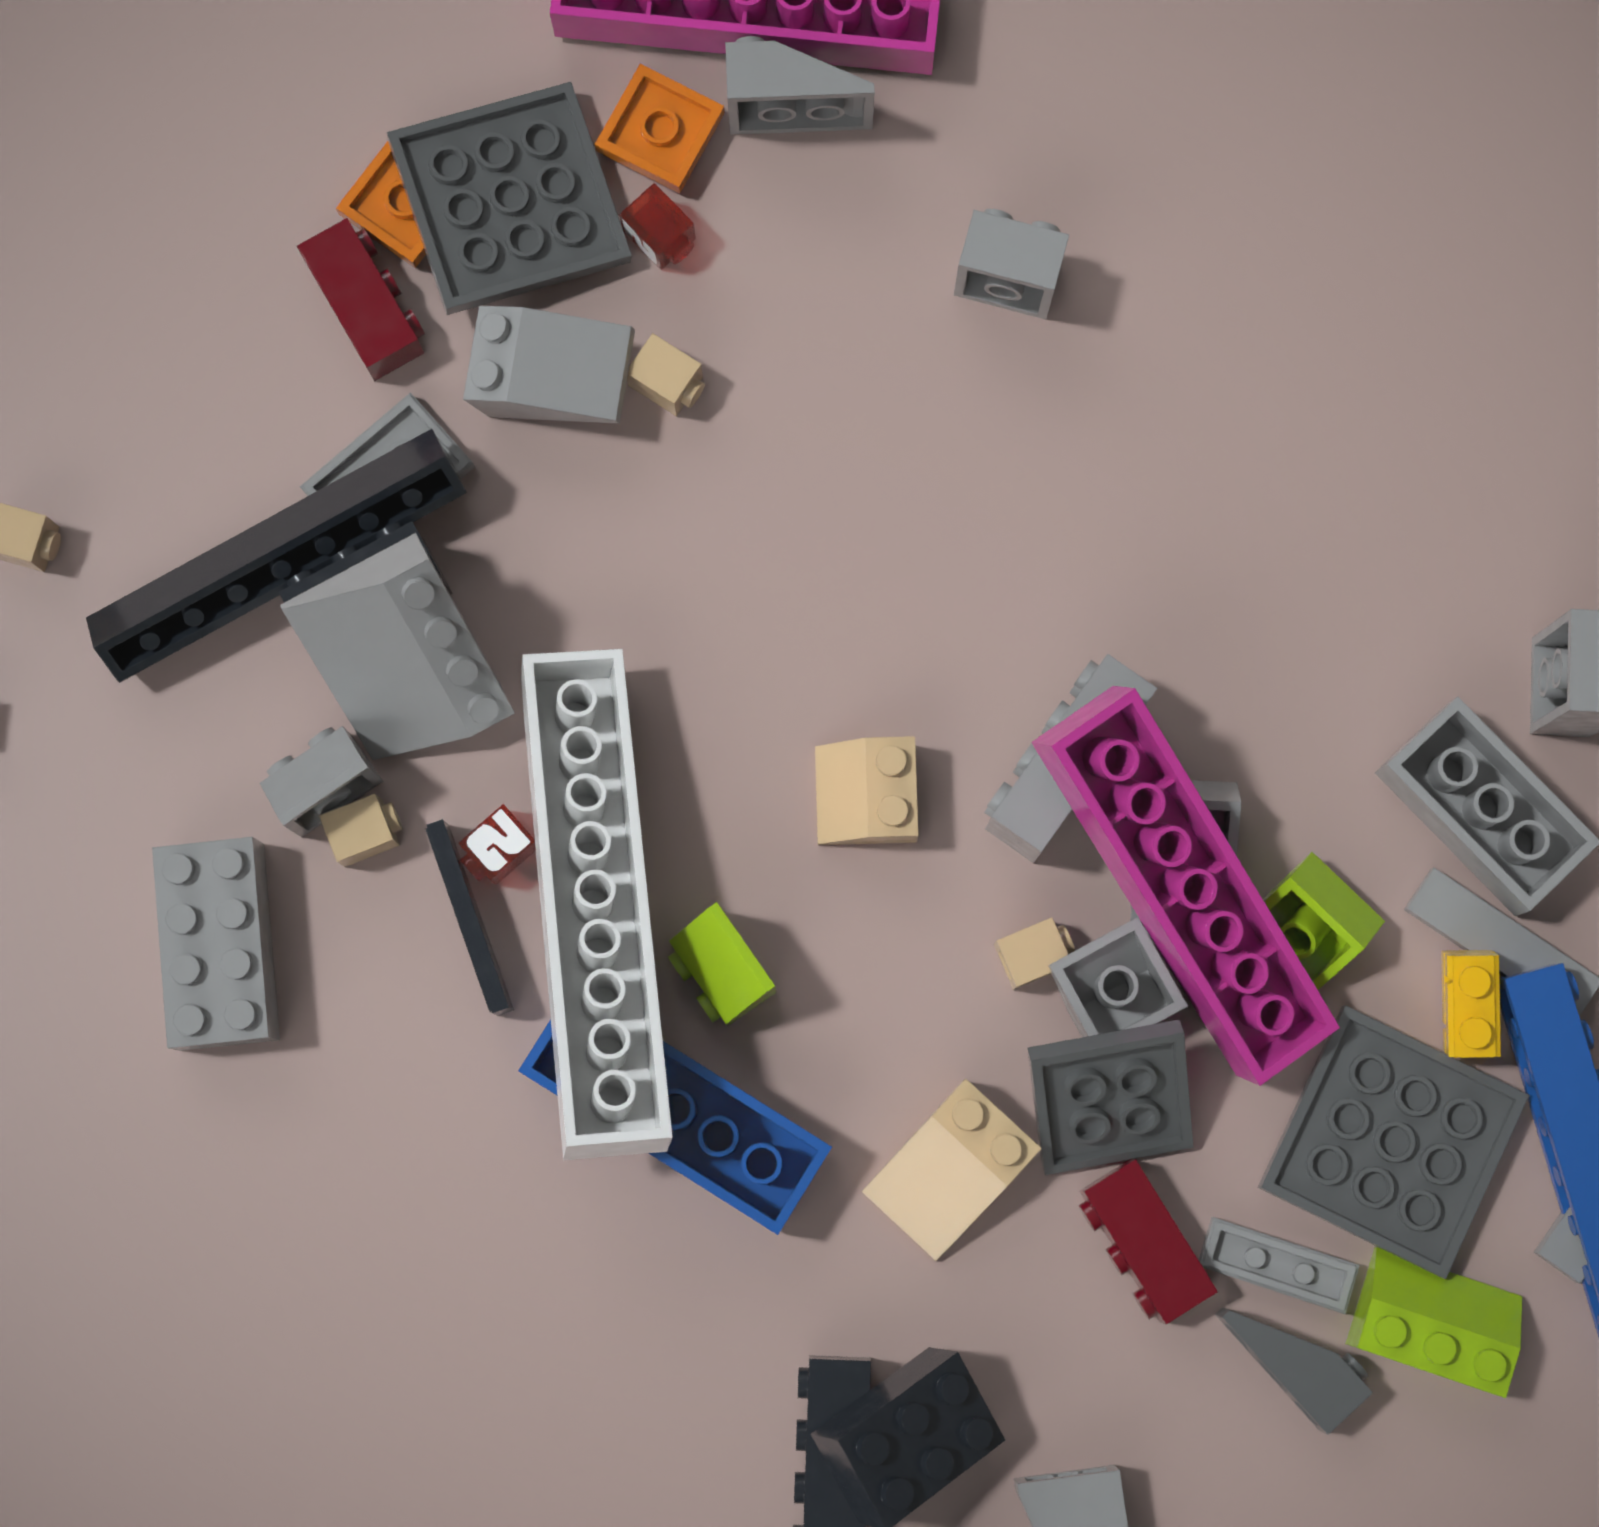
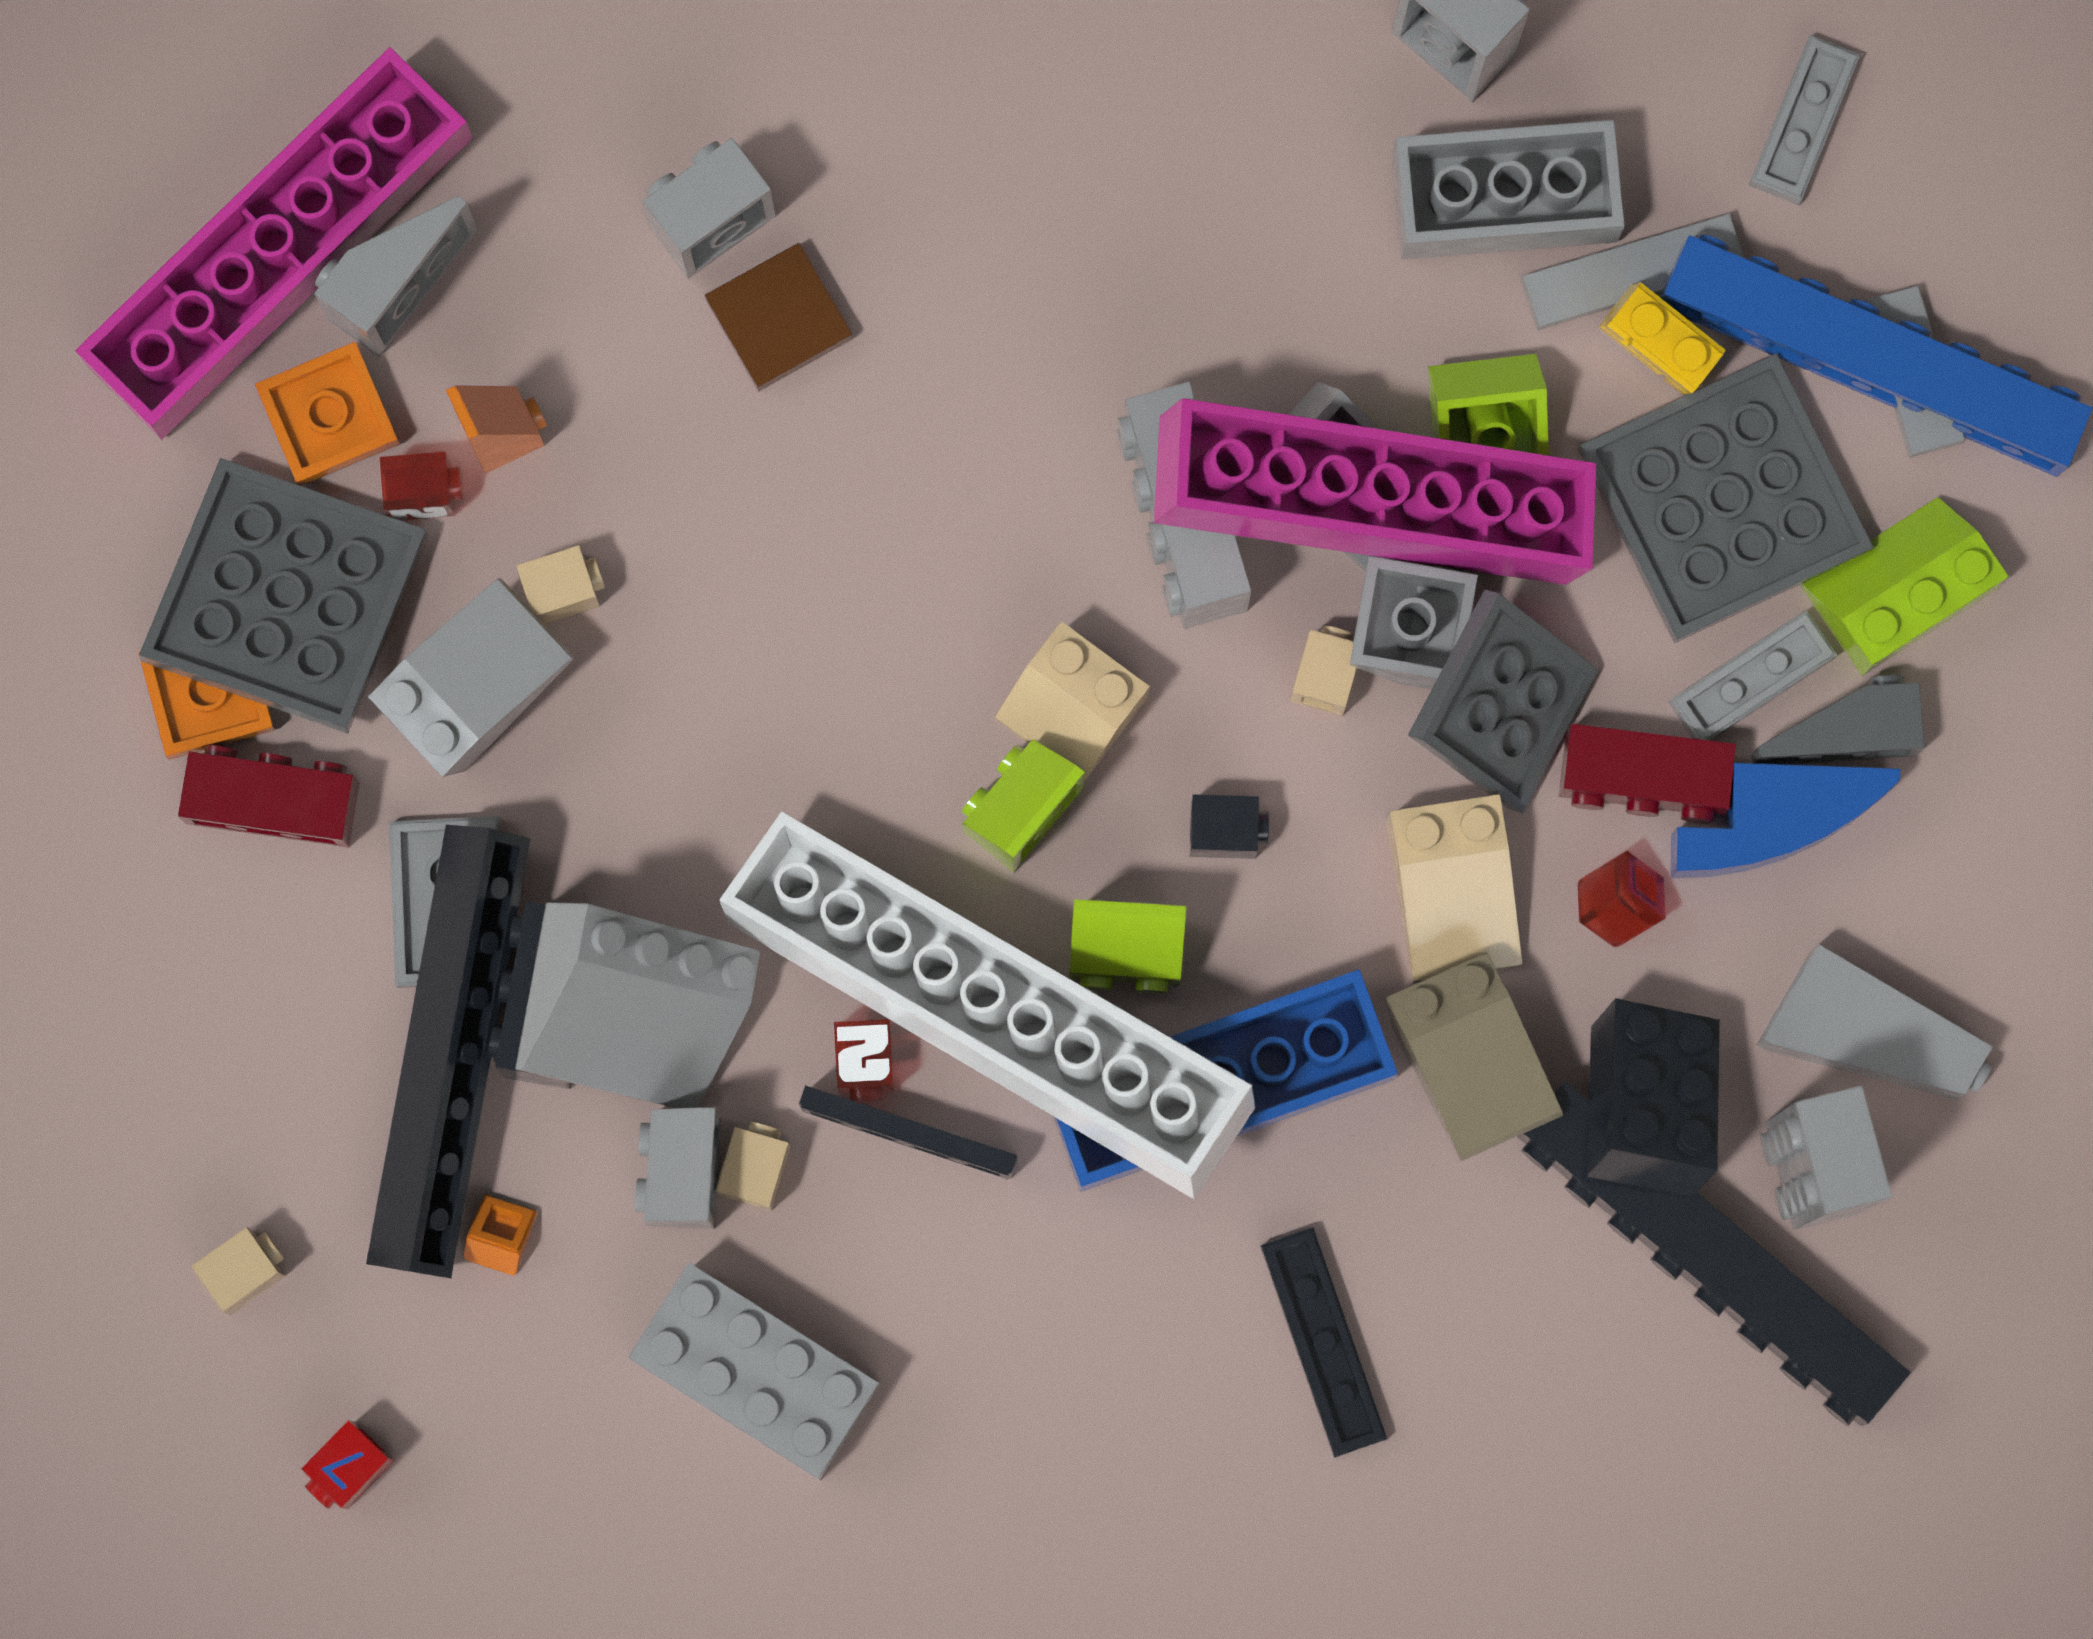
camera: 55 degrees left, 0 degrees up
(182, 693) = (499, 1235): none -> orange slope
(550, 1332) = (1323, 1342): none -> black tile
(739, 238) = (497, 422): none -> orange slope
(764, 813) = (1022, 803): none -> lime slope
(835, 1280) = (1473, 1056): none -> dark tan slope
(865, 970) = (1227, 826): none -> black brick
(976, 375) = (778, 316): none -> reddish brown tile
(1039, 1296) = (1621, 899): none -> clear red panel
(1193, 1364) = (1778, 815): none -> blue slope

